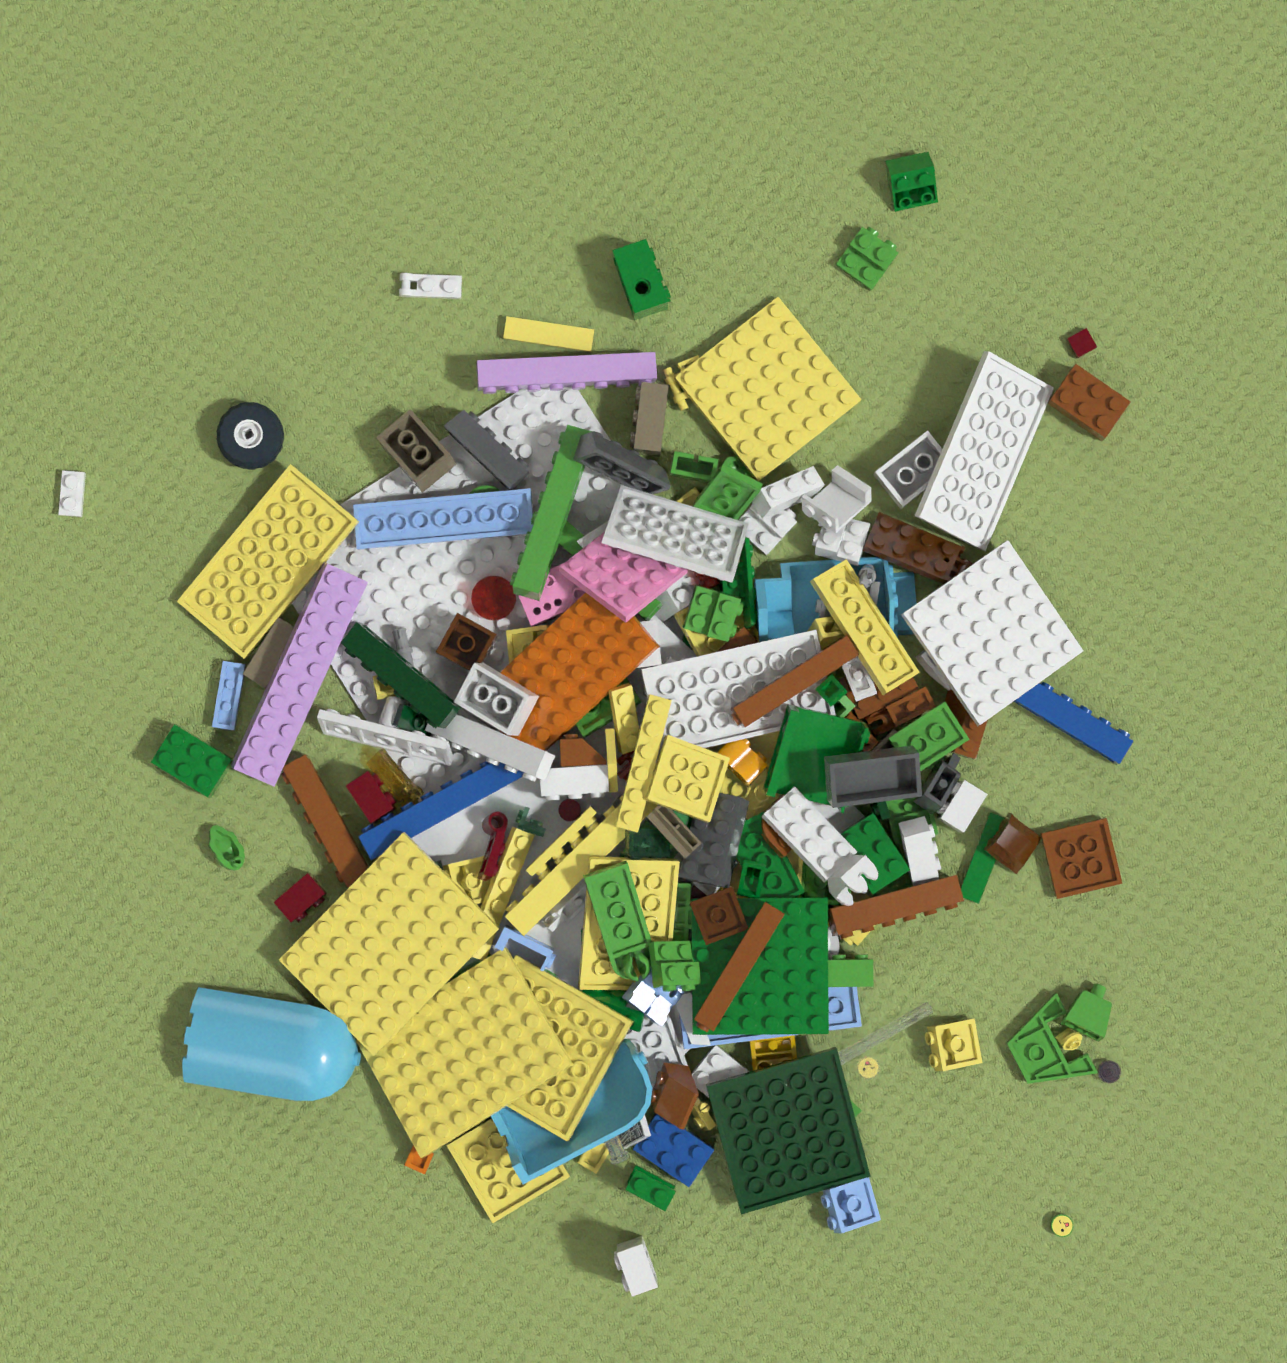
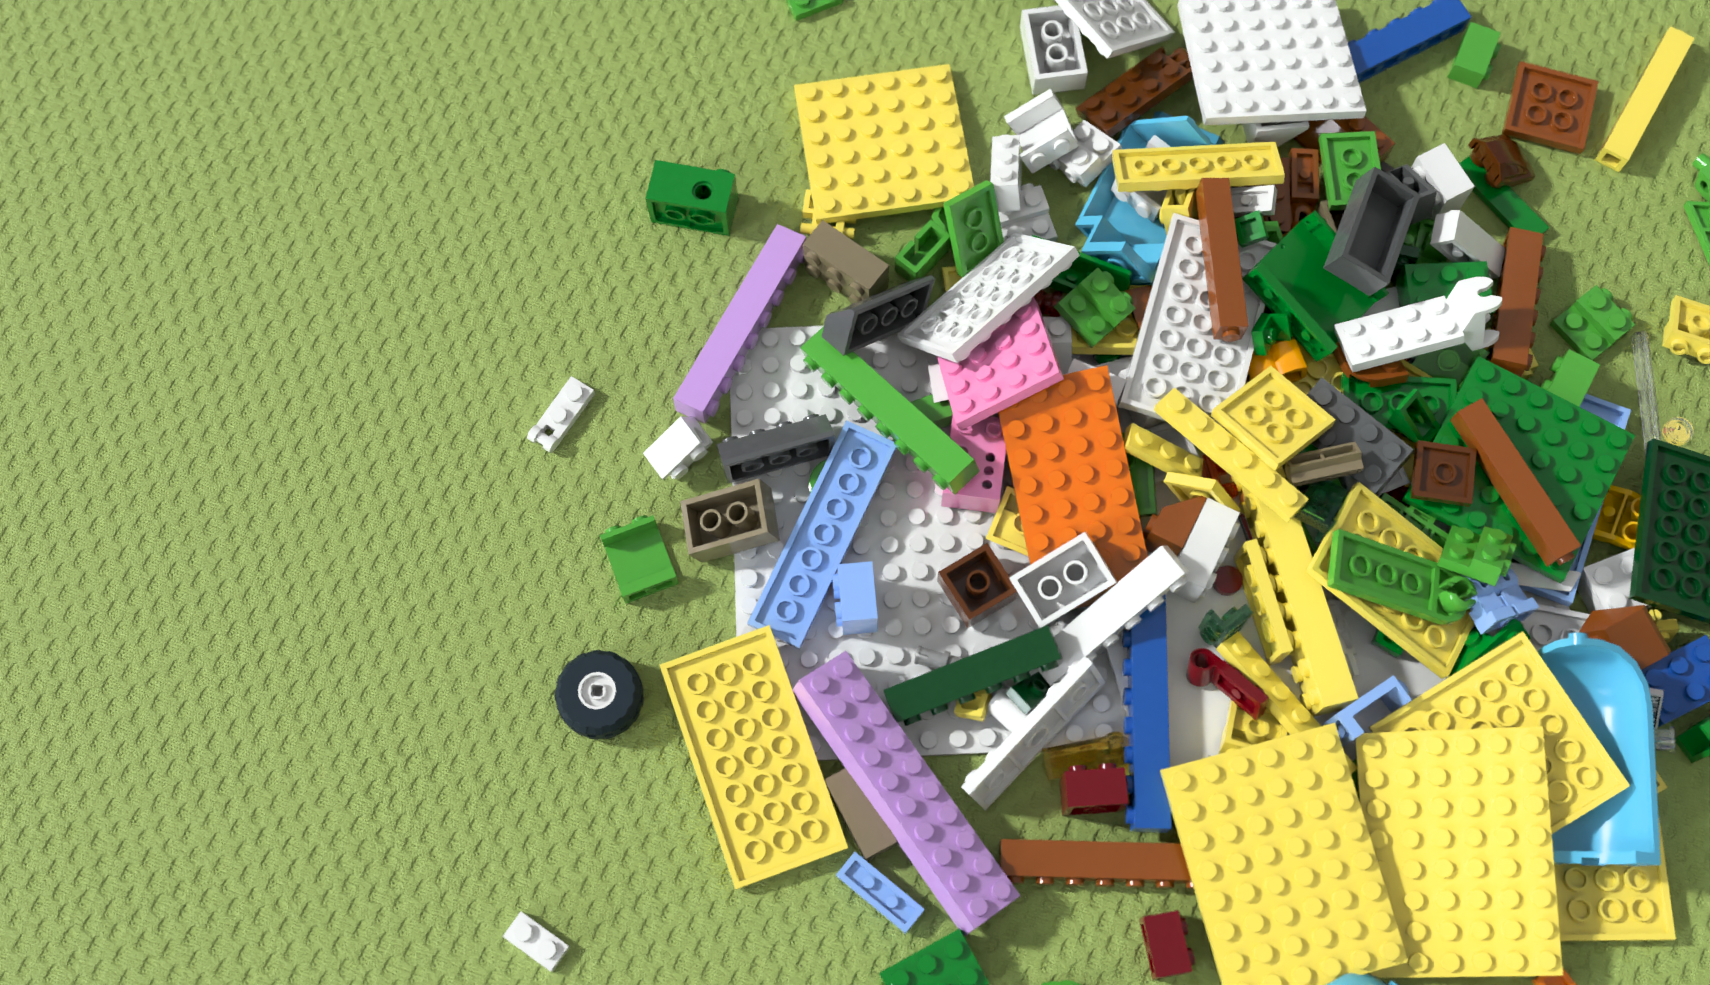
camera: 55 degrees left, 15 degrees down
(359, 404) = (639, 558): none -> bright green panel
(409, 567) = (857, 597): none -> light blue brick
(448, 383) = (678, 448): none -> white brick
(493, 598) = (941, 533): clear red tile -> none
(548, 334) = (689, 325): light yellow tile -> none
(758, 741) = (1268, 330): none -> green bracket
(867, 575) = (1141, 140): light grey axle -> none
(918, 970) = (1593, 323): none -> bright green plate
(1093, 782) = (1474, 55): none -> bright green piece
(1129, 924) = (1644, 99): none -> light yellow brick

